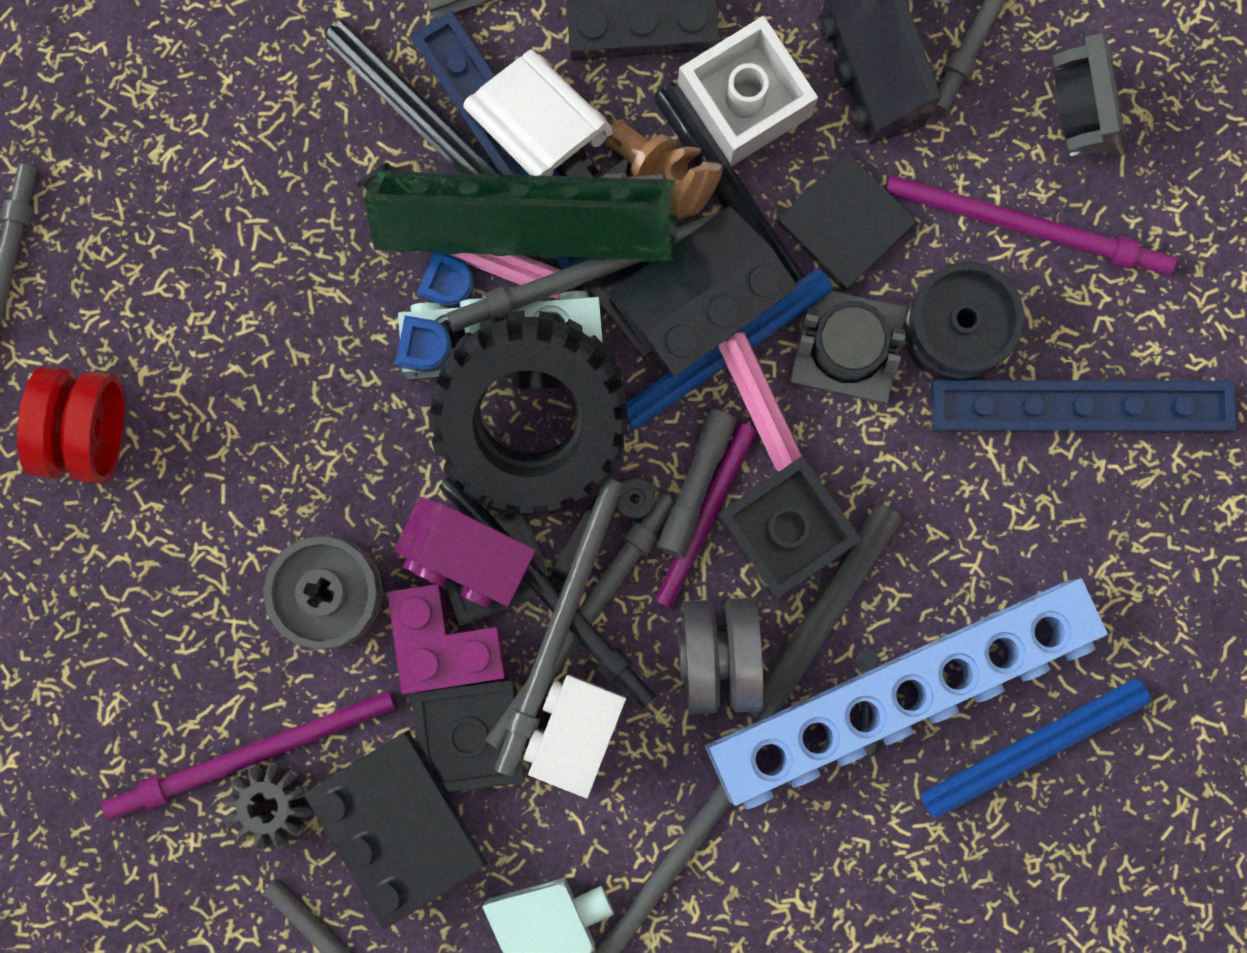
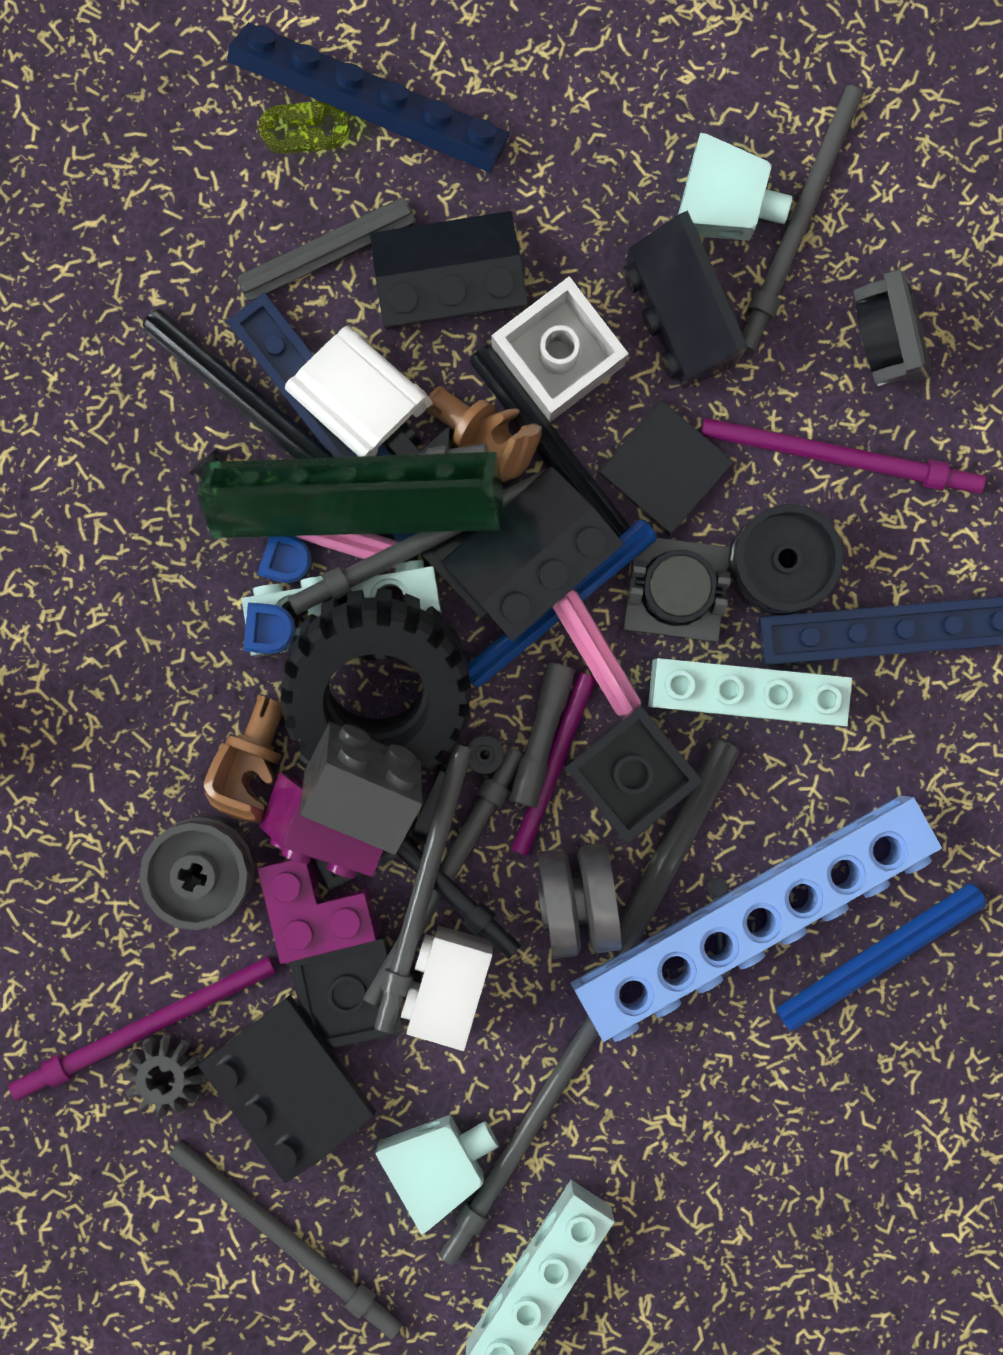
camera: 10 degrees left, 5 degrees up
(385, 480) = (242, 758): none -> medium nougat piece
(506, 506) = (362, 787): none -> dark grey brick
(917, 456) = (750, 692): none -> light aqua brick

